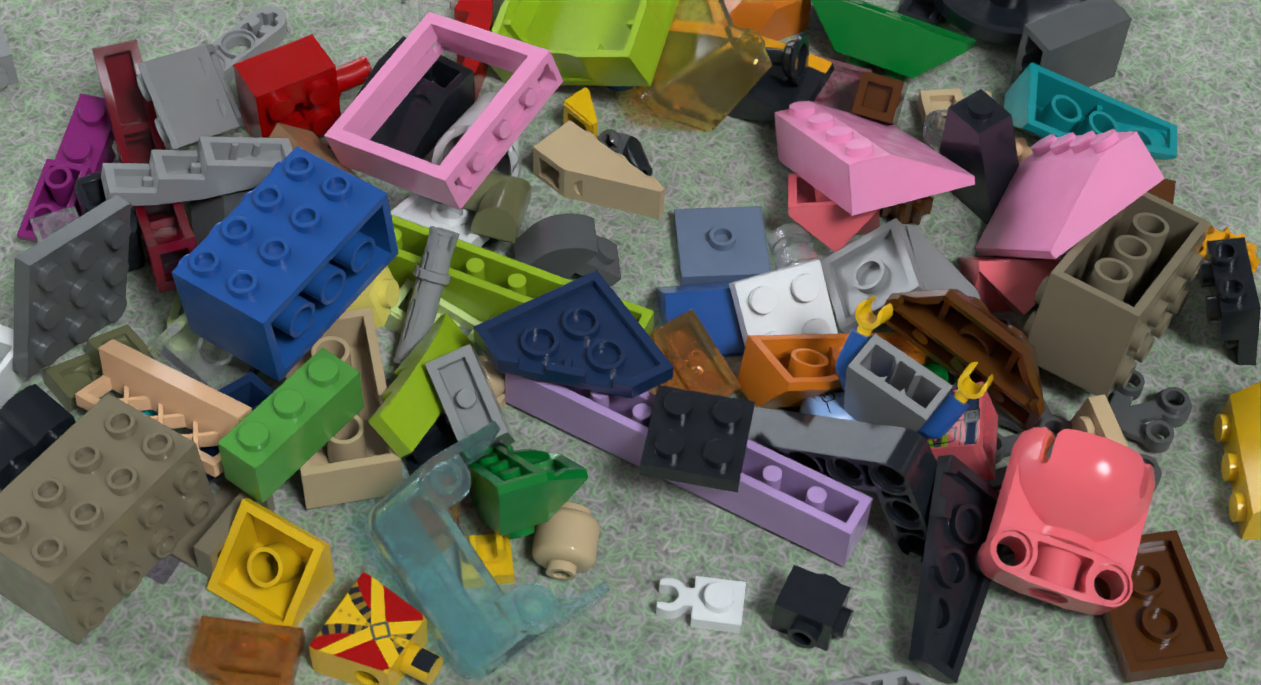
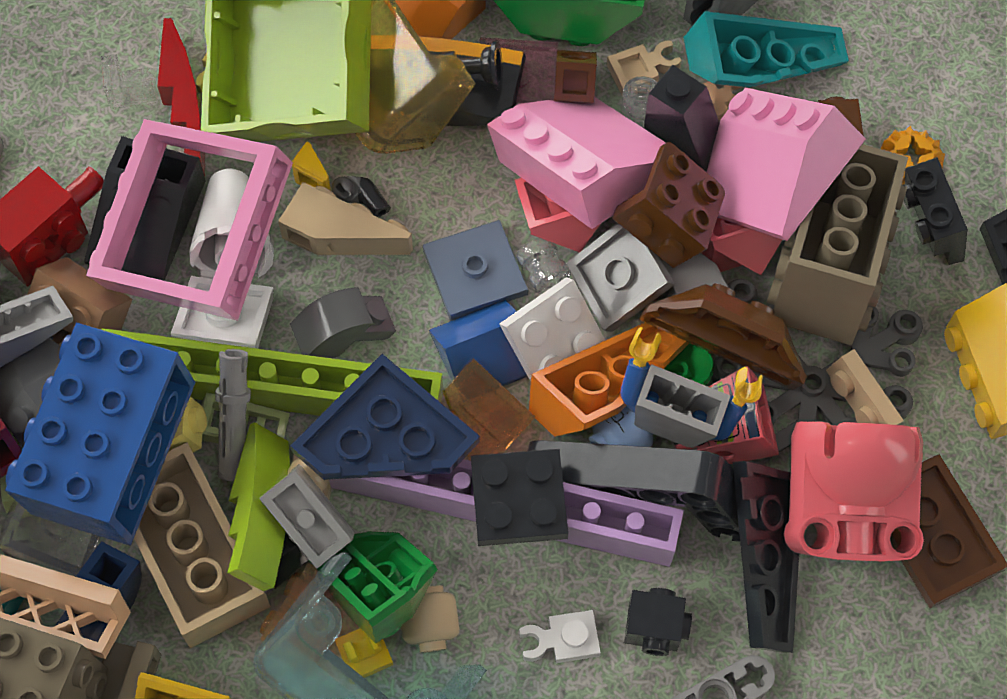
camera: 15 degrees left, 15 degrees up
(291, 425) = (160, 595): bright green brick -> none
(499, 206) = (267, 296): olive brick -> none
(943, 215) = (674, 209): none -> reddish brown bracket

